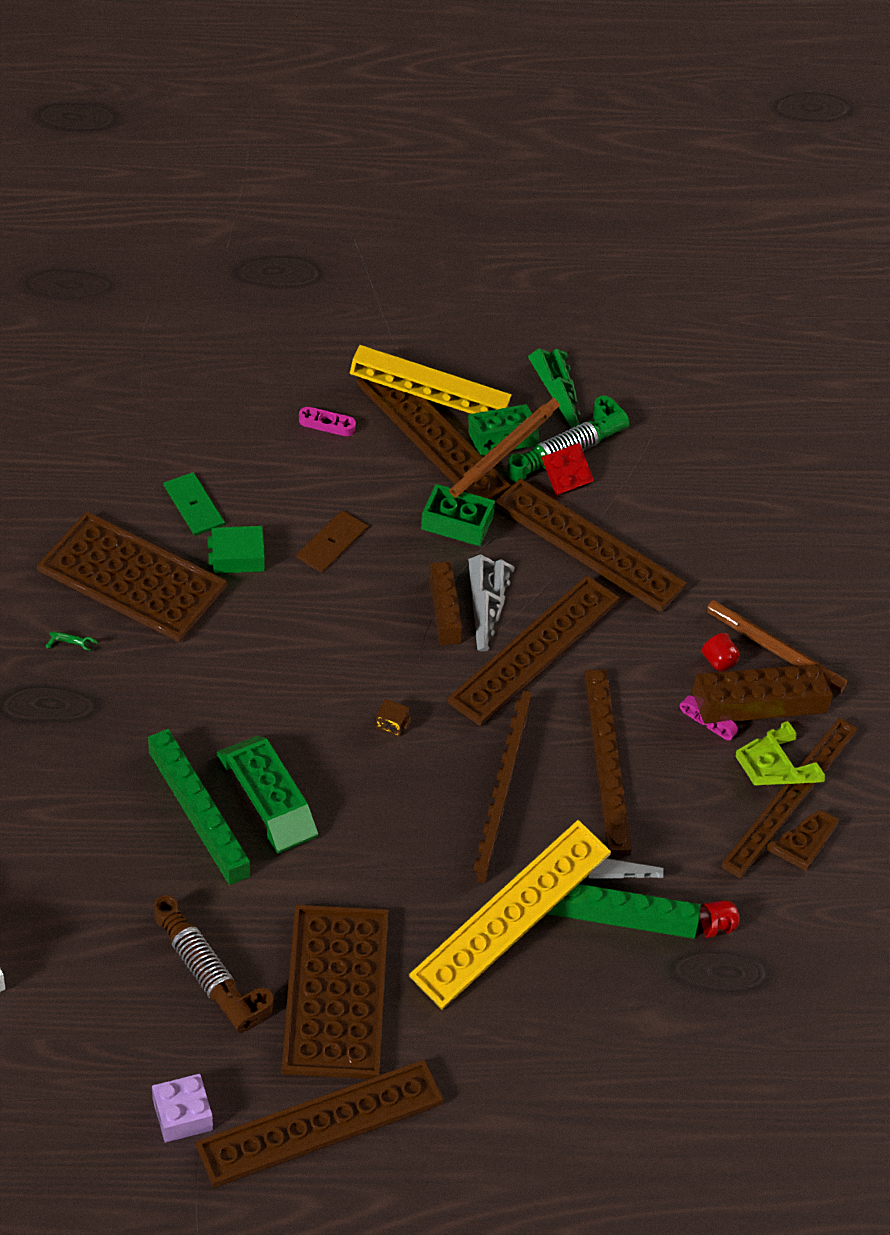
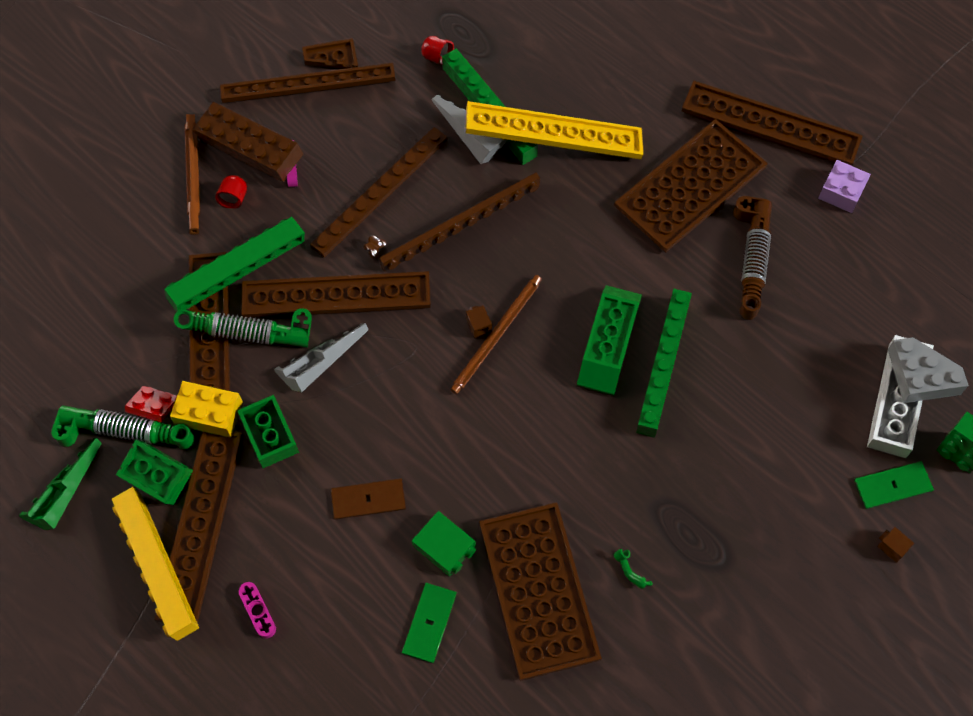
camera: 130 degrees left, 15 degrees up
(368, 726) = (496, 334): none -> dark orange piece
(445, 603) = (354, 373): reddish brown brick -> none
(502, 449) = (183, 437): dark orange piece -> none
(519, 487) = (206, 409): none -> yellow brick
(528, 594) = (248, 329): none -> green piece
(552, 708) = (373, 246): none -> reddish brown piece
(637, 598) = (234, 264): none -> green brick
(769, 765) = (295, 109): lime wing -> none

